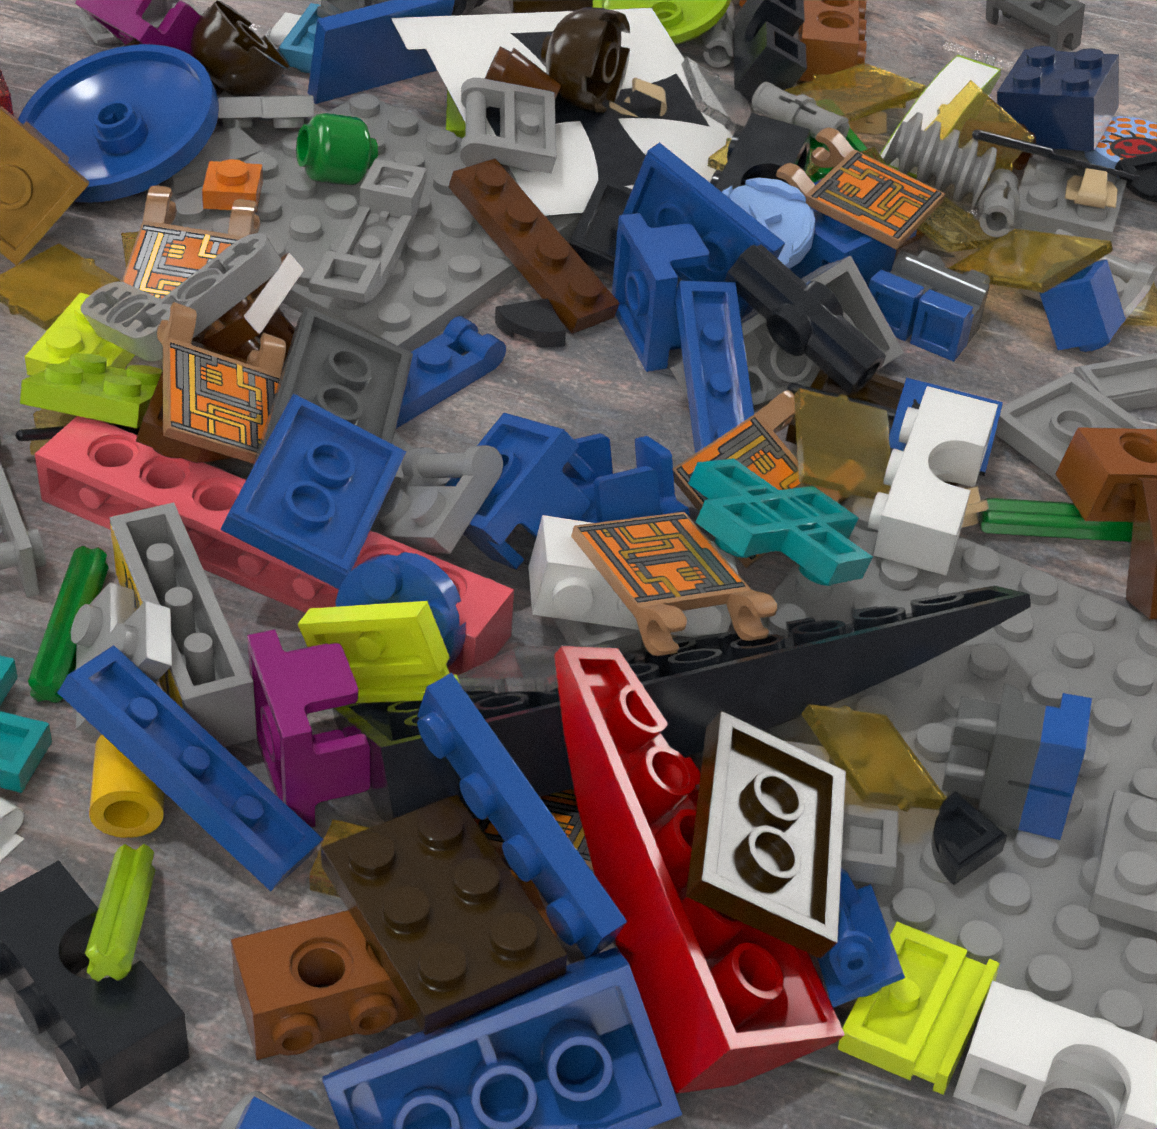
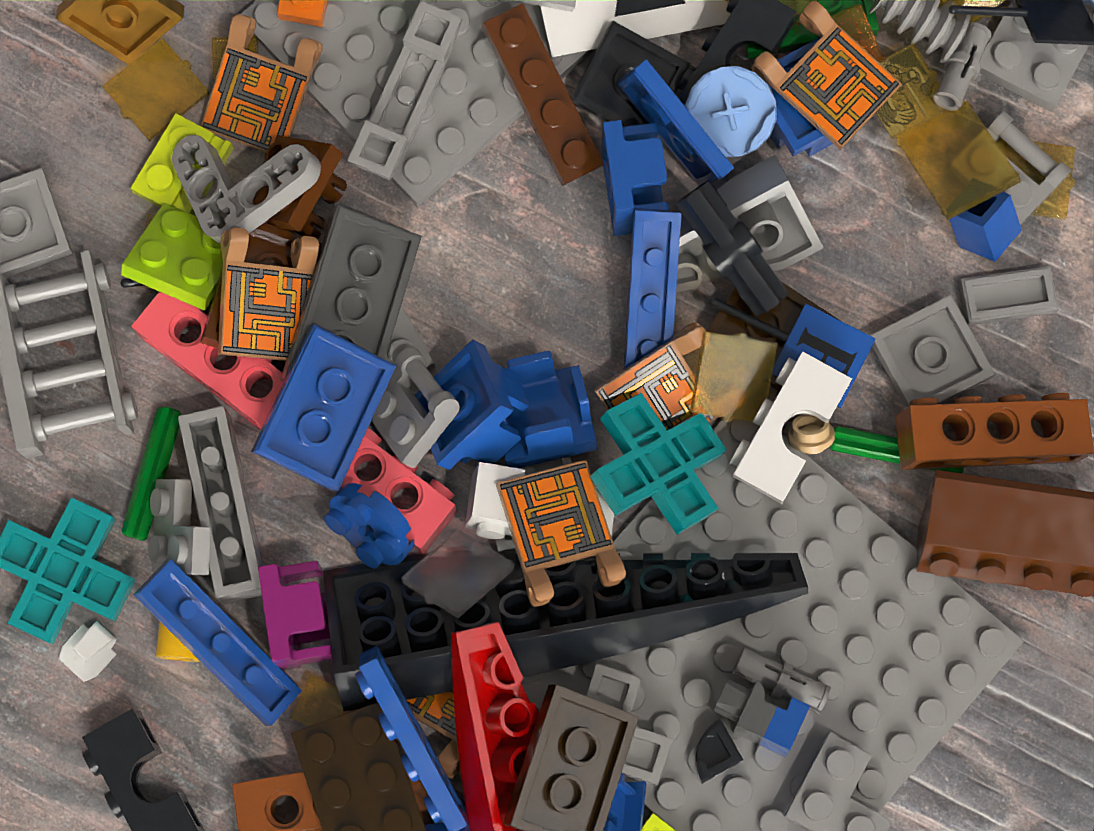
camera: 15 degrees right, 35 degrees up
(120, 913) = (169, 747): lime axle -> none
(388, 646) = (360, 561): neon yellow plate -> none
(441, 369) = (445, 227): blue plate -> none
(532, 320) = (530, 176): black tile -> none
(874, 757) = (671, 687): clear yellow piece -> none
(931, 302) = (854, 172): blue hips -> none
(1092, 189) = (1051, 61): tan piece -> none

